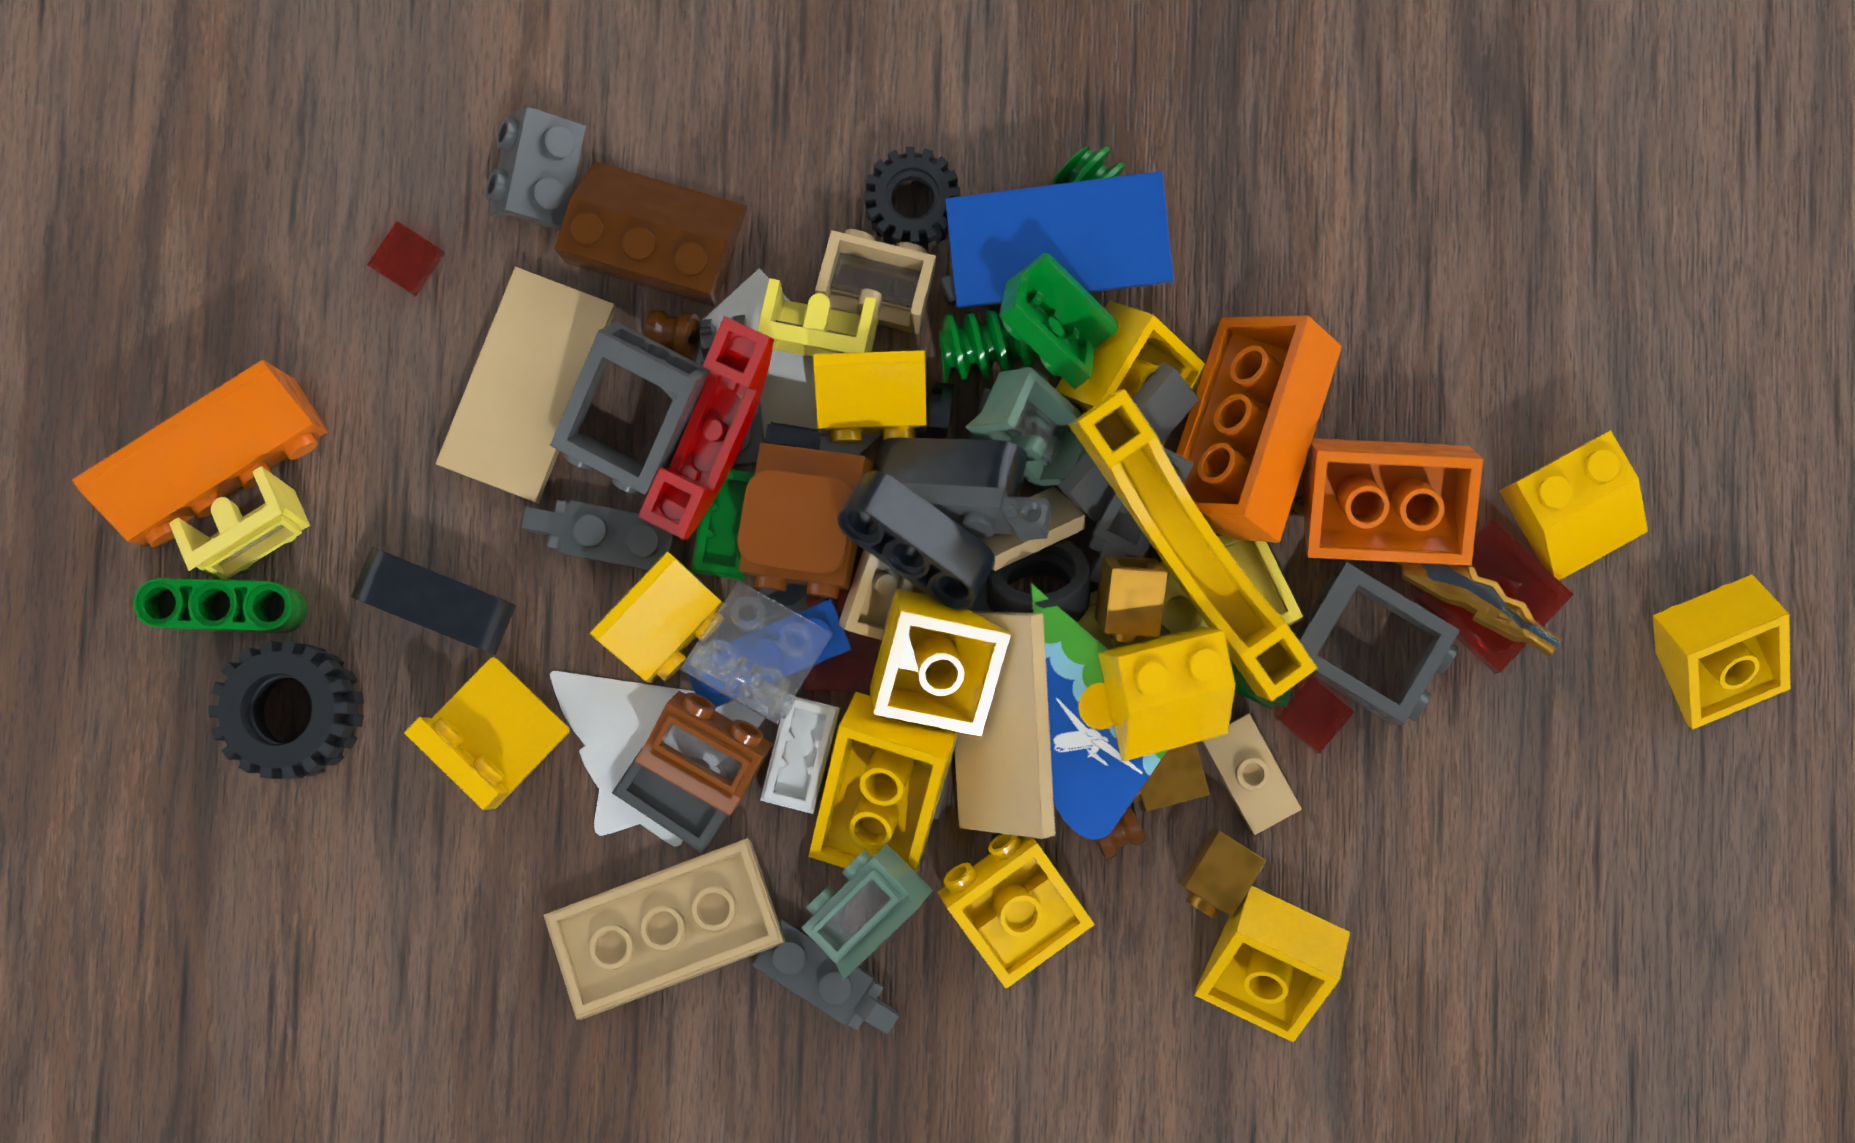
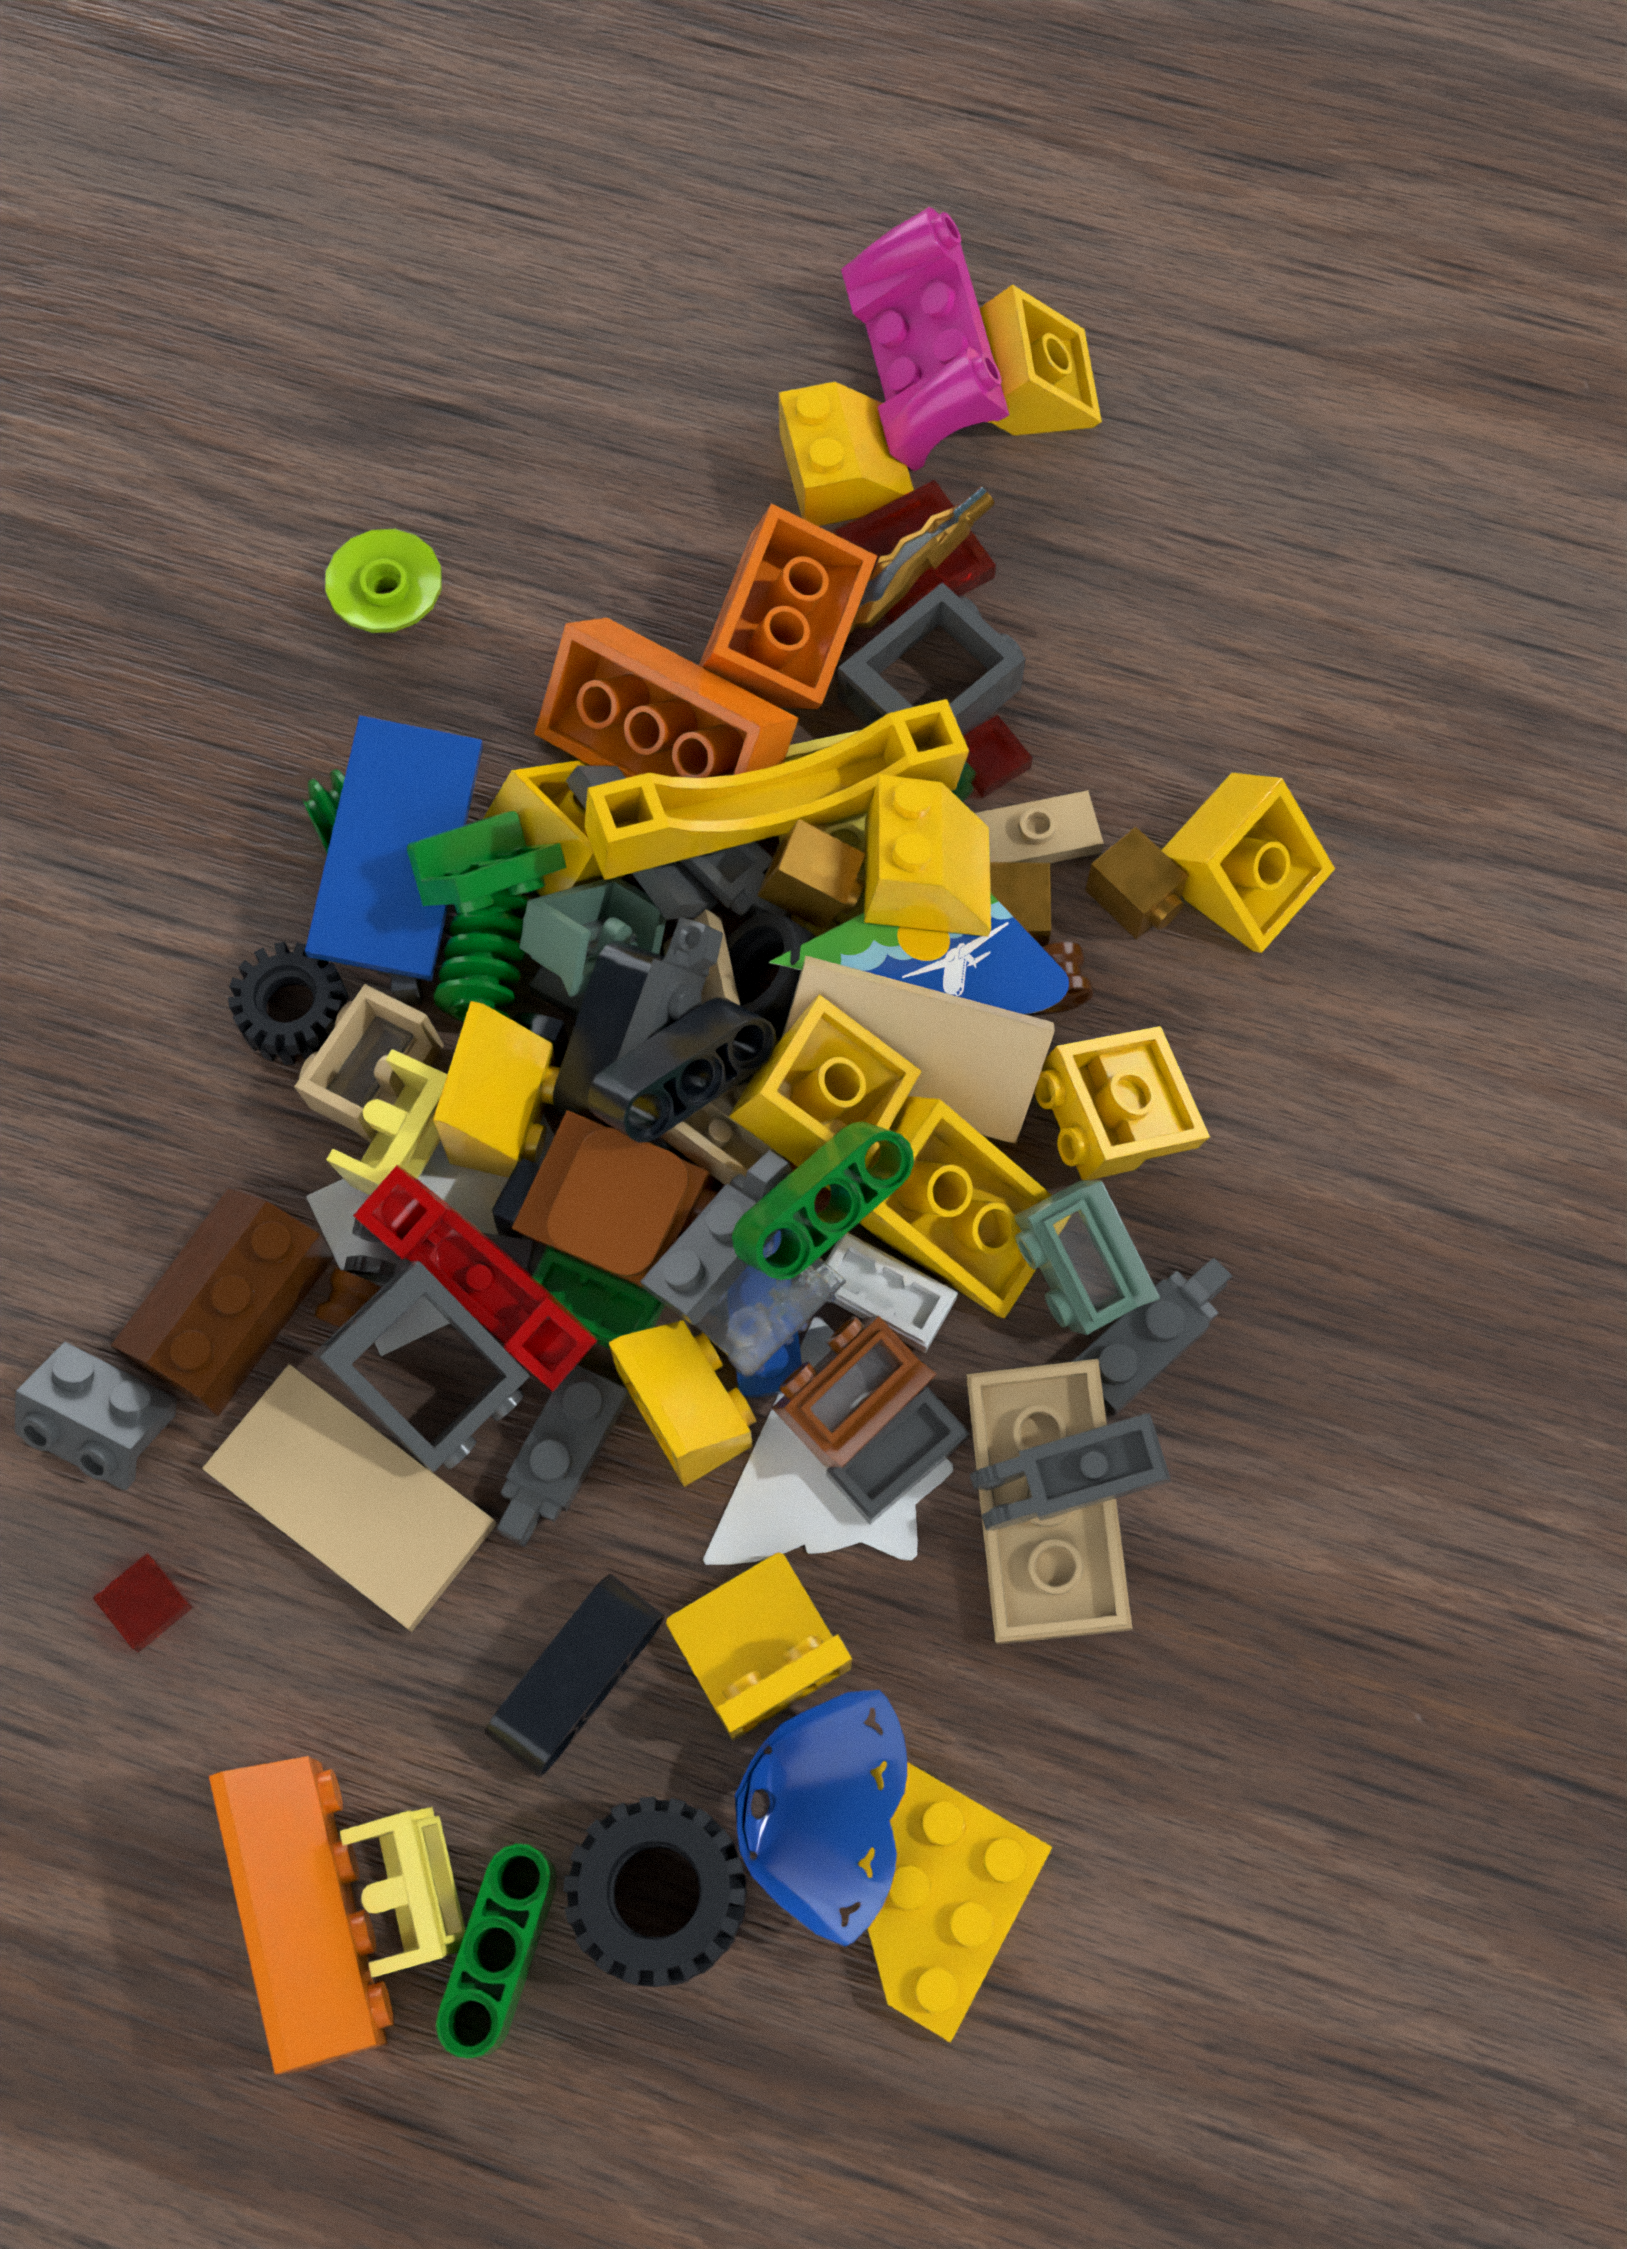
camera: 75 degrees left, 15 degrees down
(355, 913) = (949, 1900): none -> yellow plate
(371, 819) = (826, 1813): none -> blue piece
(680, 949) = (1077, 1471): none -> dark grey hinge
(786, 614) = (703, 1259): none -> dark grey hinge
(801, 683) = (853, 1196): none -> green beam
(1341, 124) = (379, 562): none -> lime dish
(1720, 546) = (924, 335): none -> dark pink piece

